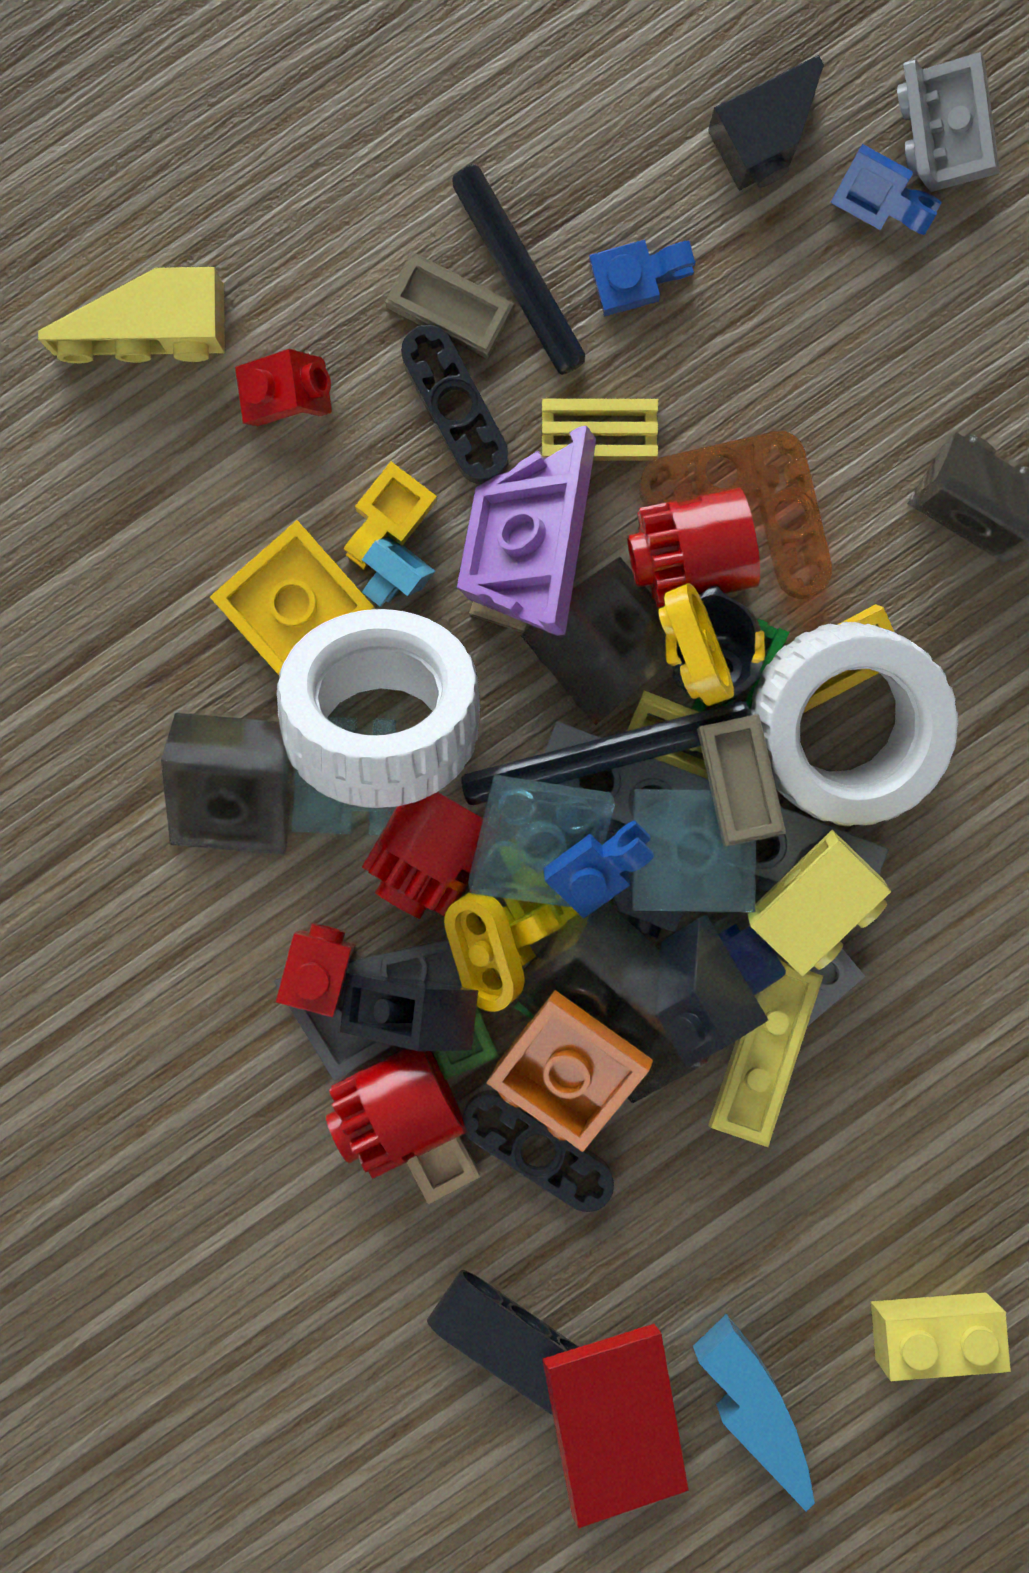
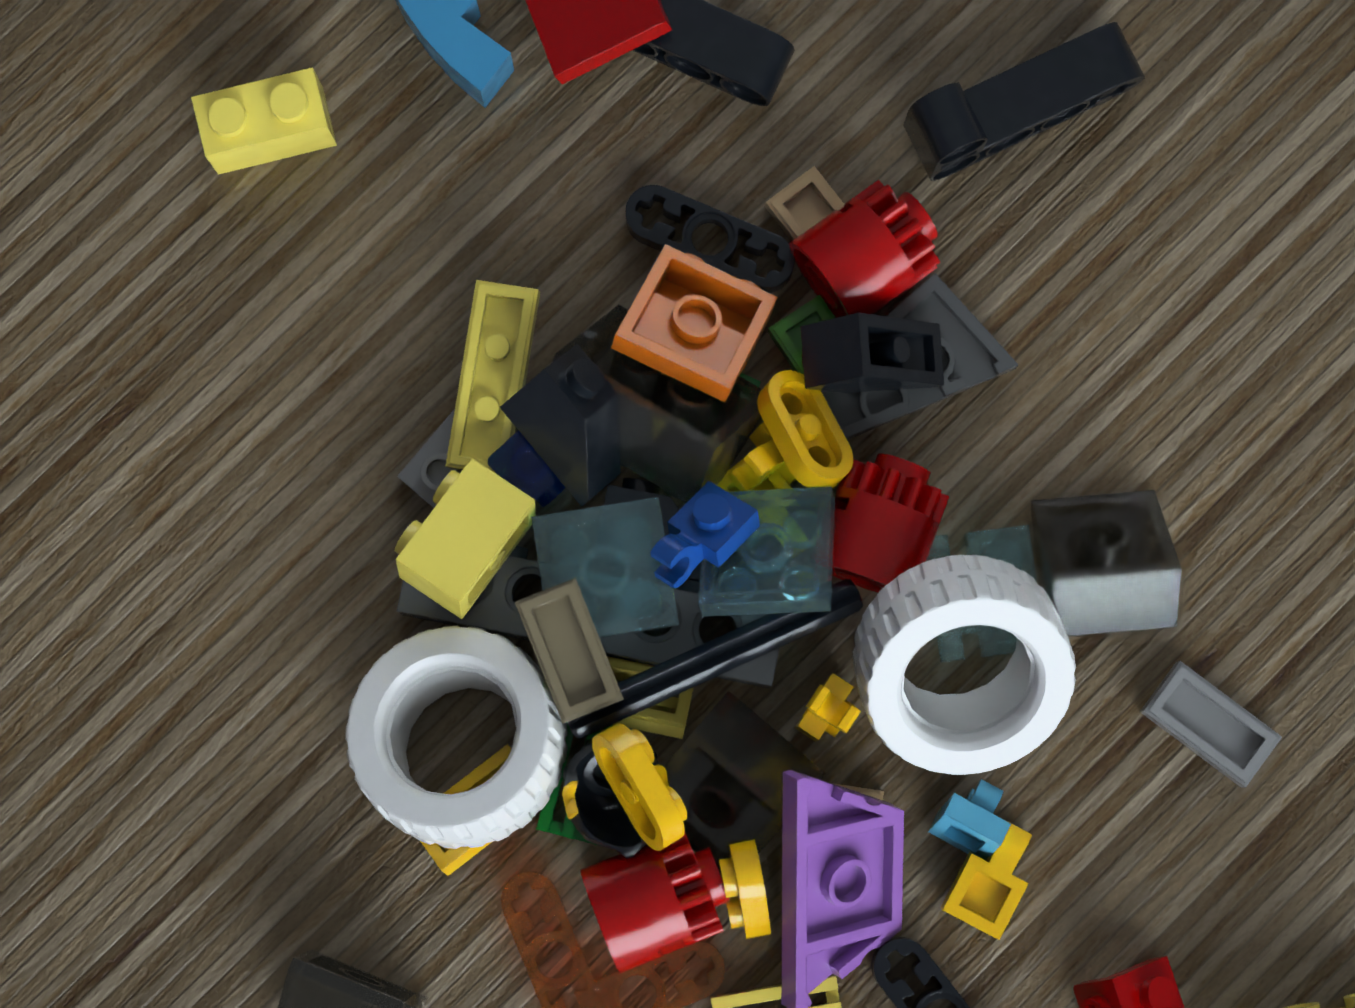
camera: 170 degrees right, 5 degrees down
(161, 622) = (1211, 724): none -> light grey tile
(278, 1217) = (967, 126): none -> black beam
(287, 594) = (1080, 775): yellow plate -> none
(315, 970) = (976, 383): red bracket -> none
(506, 691) = (828, 710): none -> yellow plate
(612, 542) = (746, 890): none -> yellow plate

